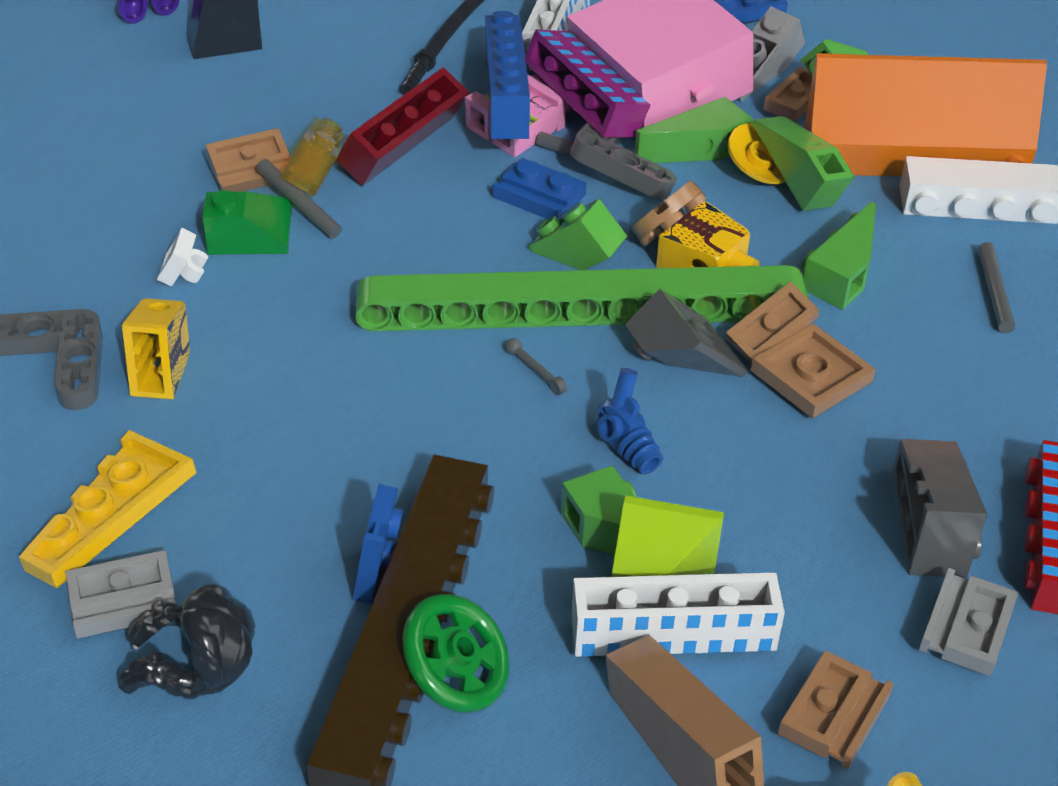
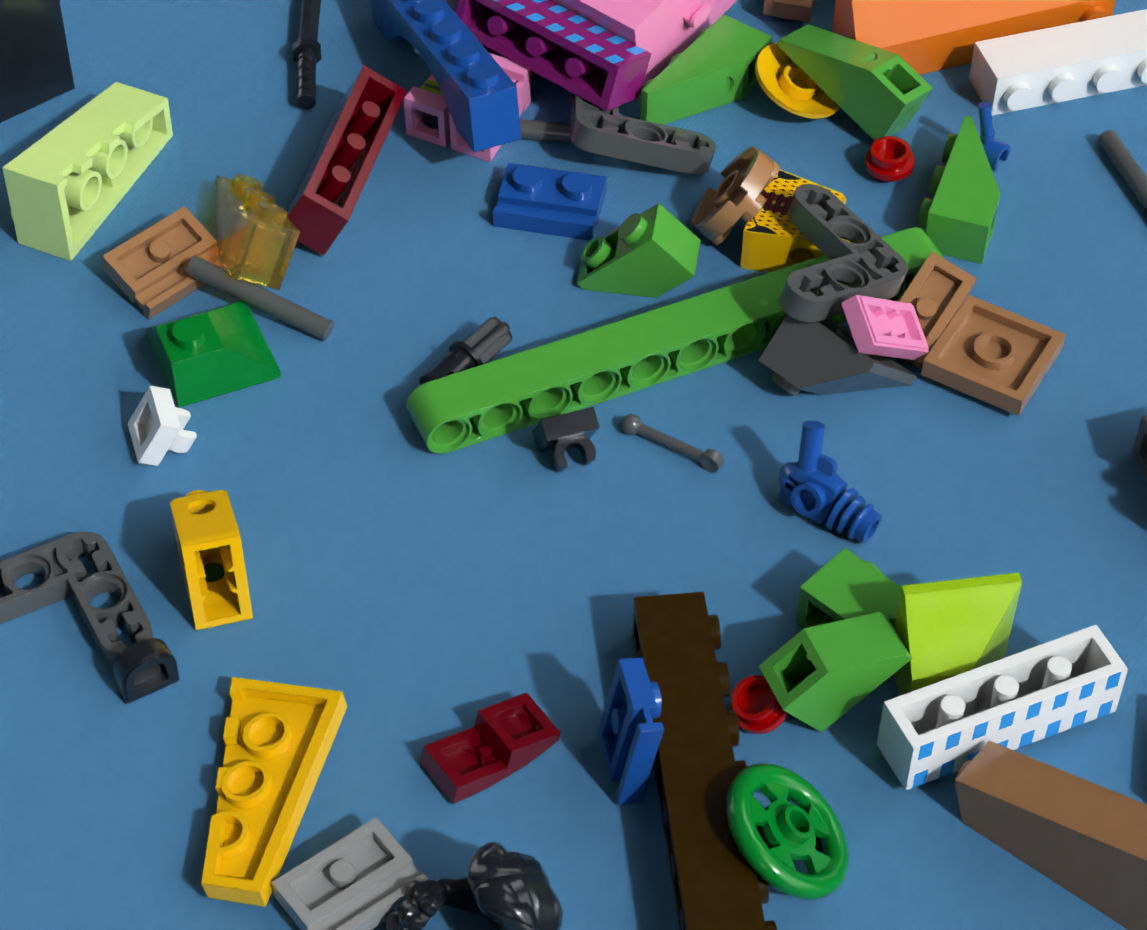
camera: 20 degrees left, 5 degrees up
(73, 407) = (144, 669): none -> black tile
(228, 90) = (84, 168): none -> yellowish green wedge
(291, 531) = (498, 745): none -> dark red slope
(436, 263) = (473, 351): none -> black axle
(458, 334) = (567, 431): none -> black tile
(493, 558) = (756, 706): none -> red plate
(555, 546) = (834, 667): none -> bright green slope
(725, 322) = (885, 327): none -> bright pink plate
(732, 280) = (864, 265): none -> dark grey beam
(805, 221) = (889, 159): none -> red plate
(885, 231) = (994, 148): none -> blue hand

